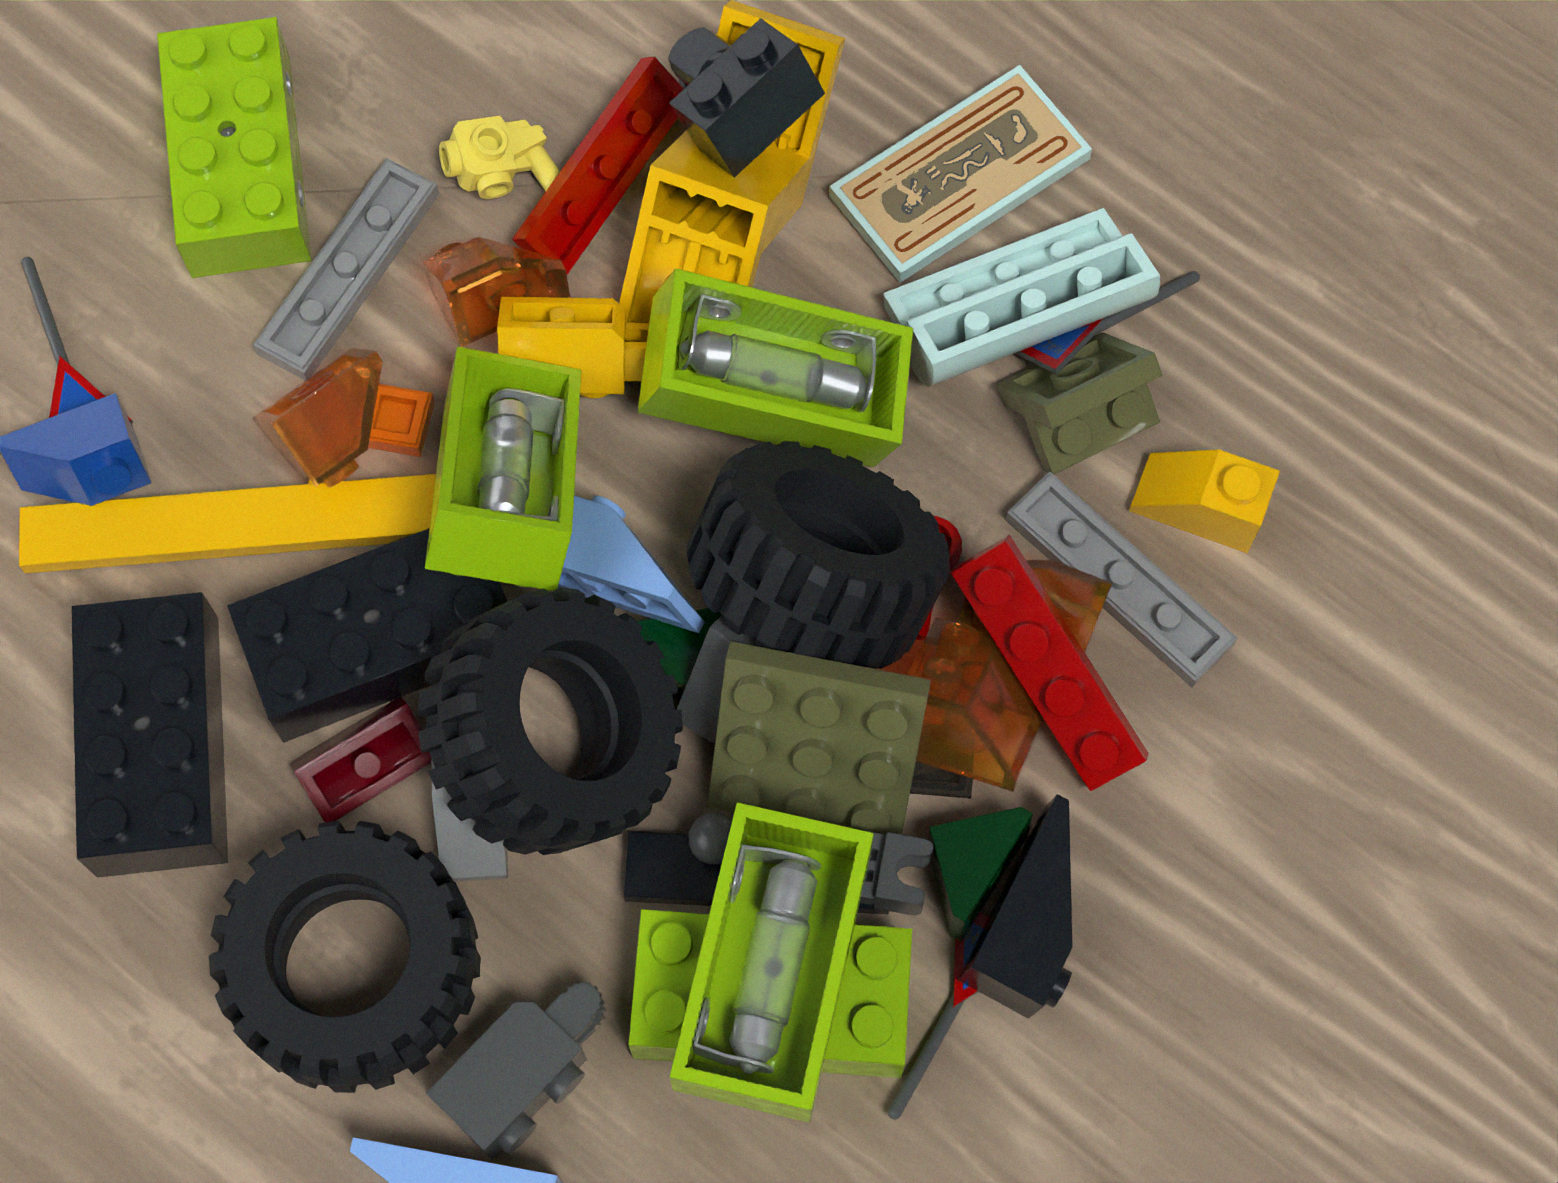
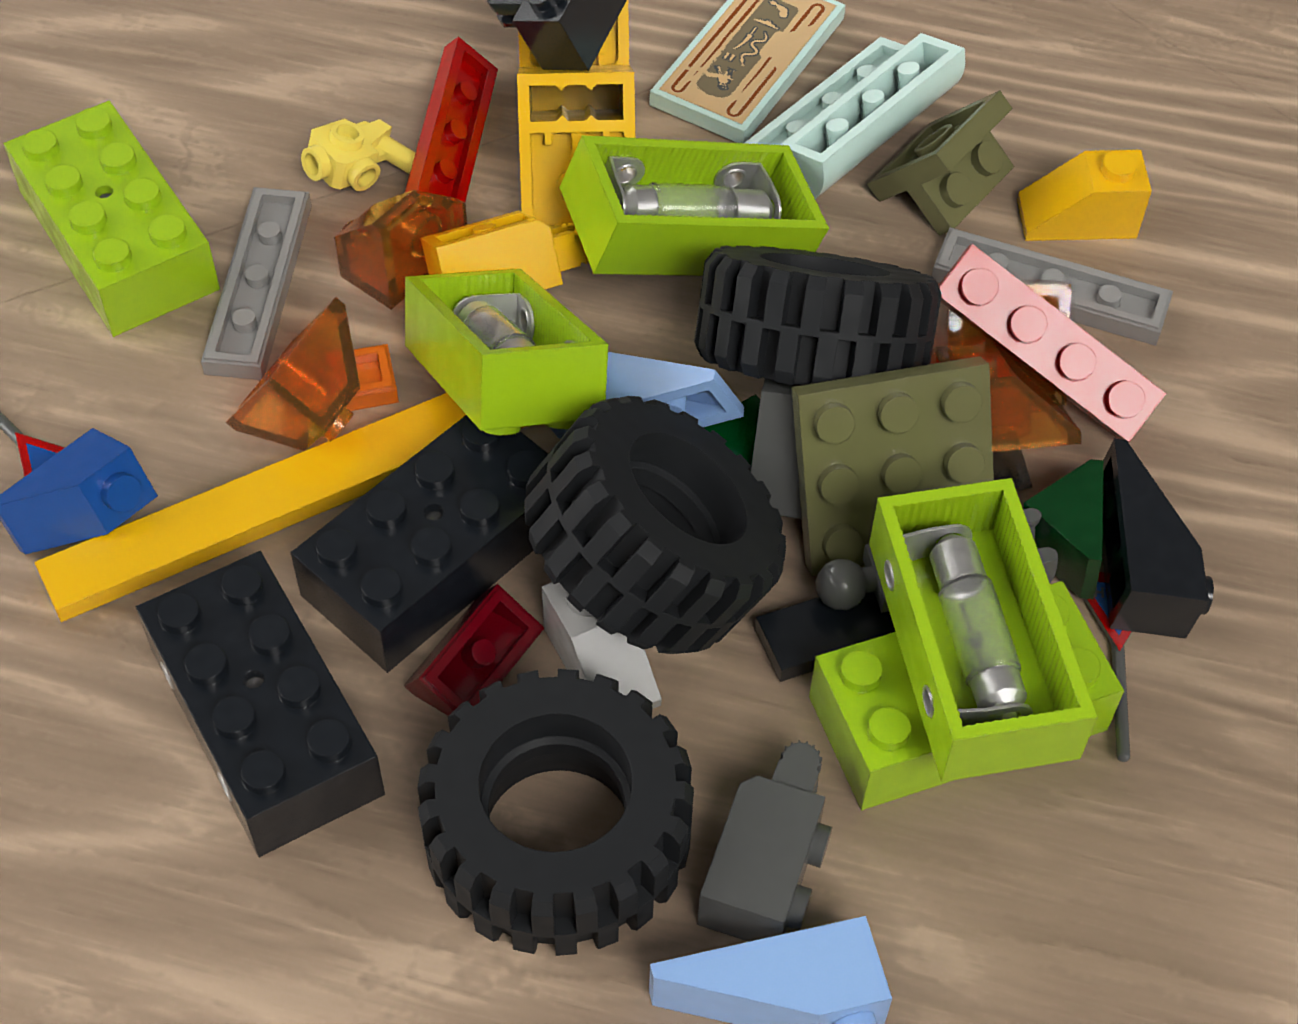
camera: 25 degrees left, 15 degrees down
(1058, 351) = (912, 134): piece -> none

